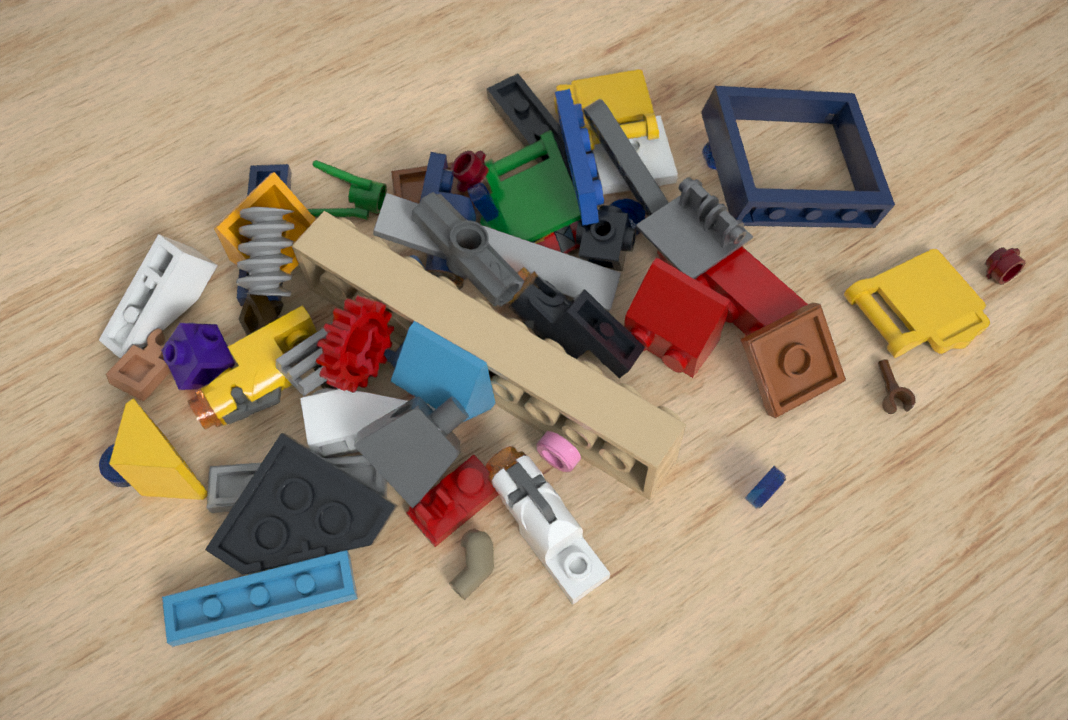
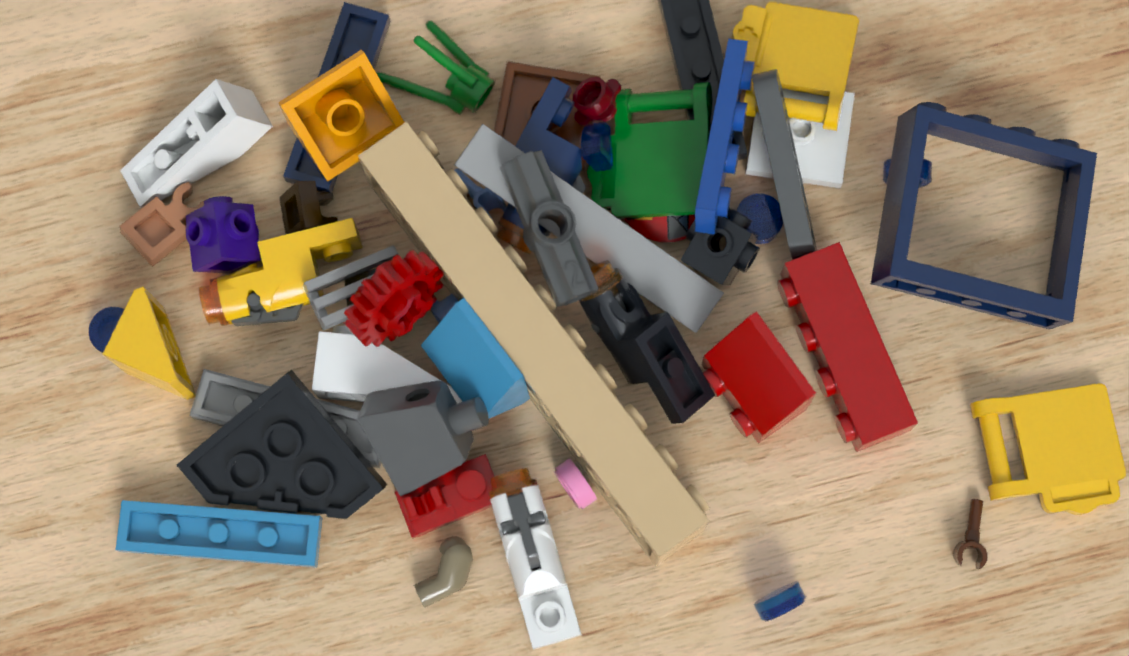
camera: 20 degrees right, 15 degrees up
(265, 251) = (329, 152): light grey piece -> none
(694, 230) = (820, 280): flat silver hinge -> none
(793, 359) = (870, 471): dark orange tile -> none

